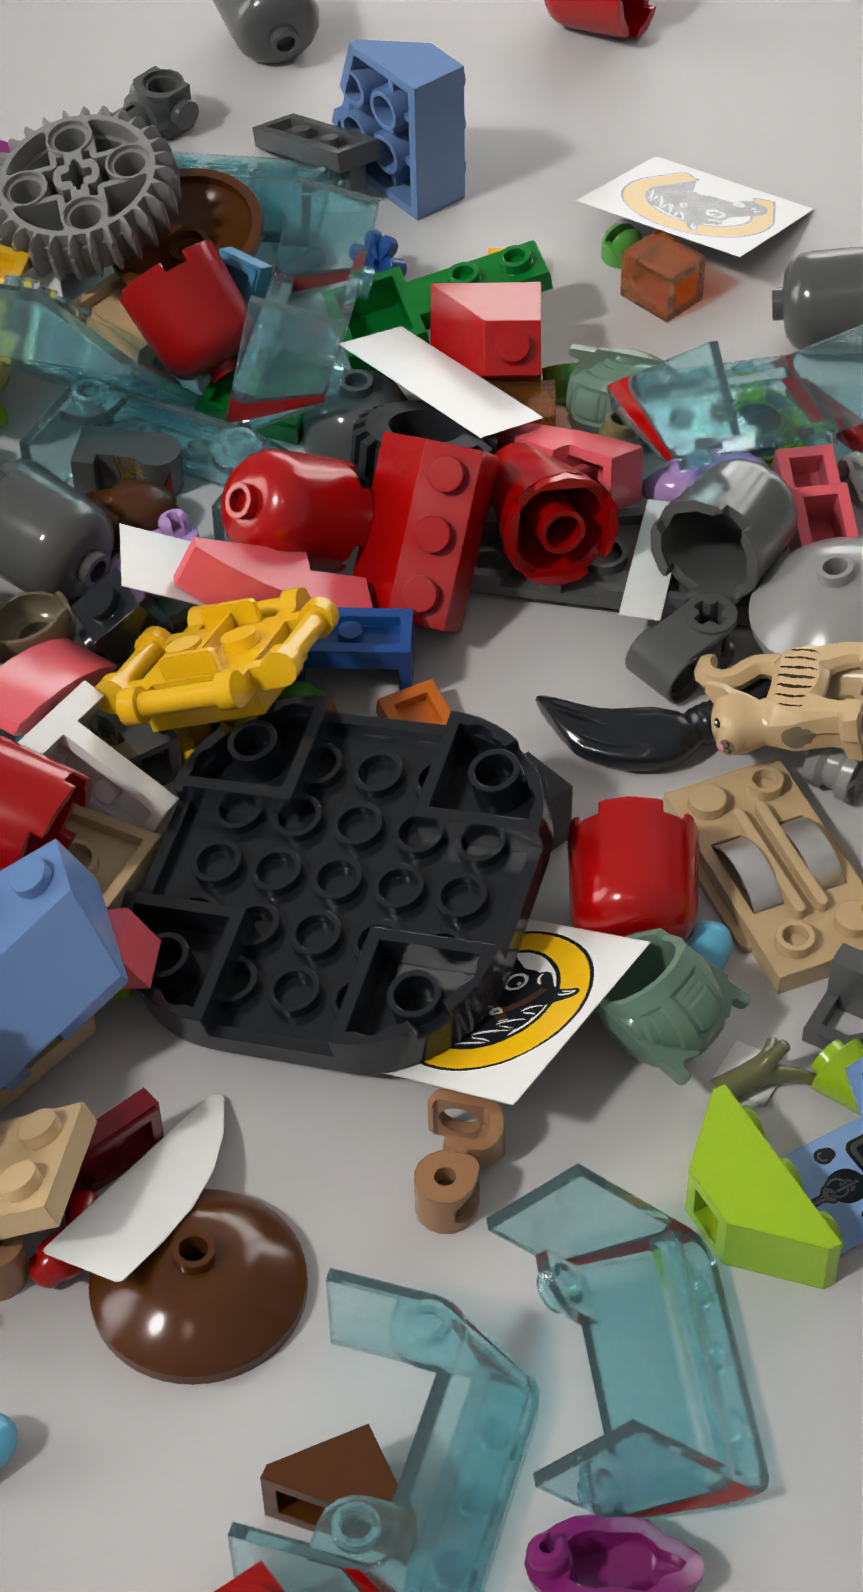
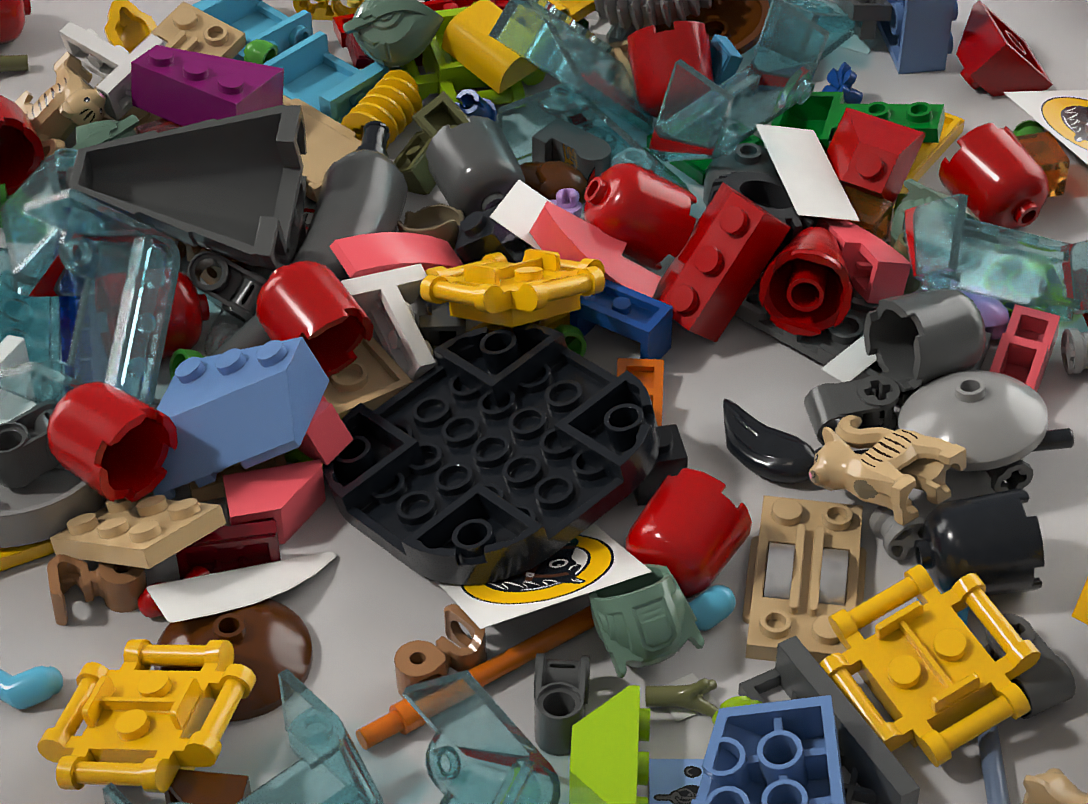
camera: 30 degrees right, 5 degrees down
(101, 1060) = (276, 493): none -> coral slope
(185, 1417) = (147, 720): none -> yellow brick
(473, 1244) = (405, 718): none -> orange bar
(523, 161) = (997, 56): none -> red slope
(631, 1143) = (559, 701): none -> dark grey piece
(644, 305) = (998, 176): none -> red cylinder

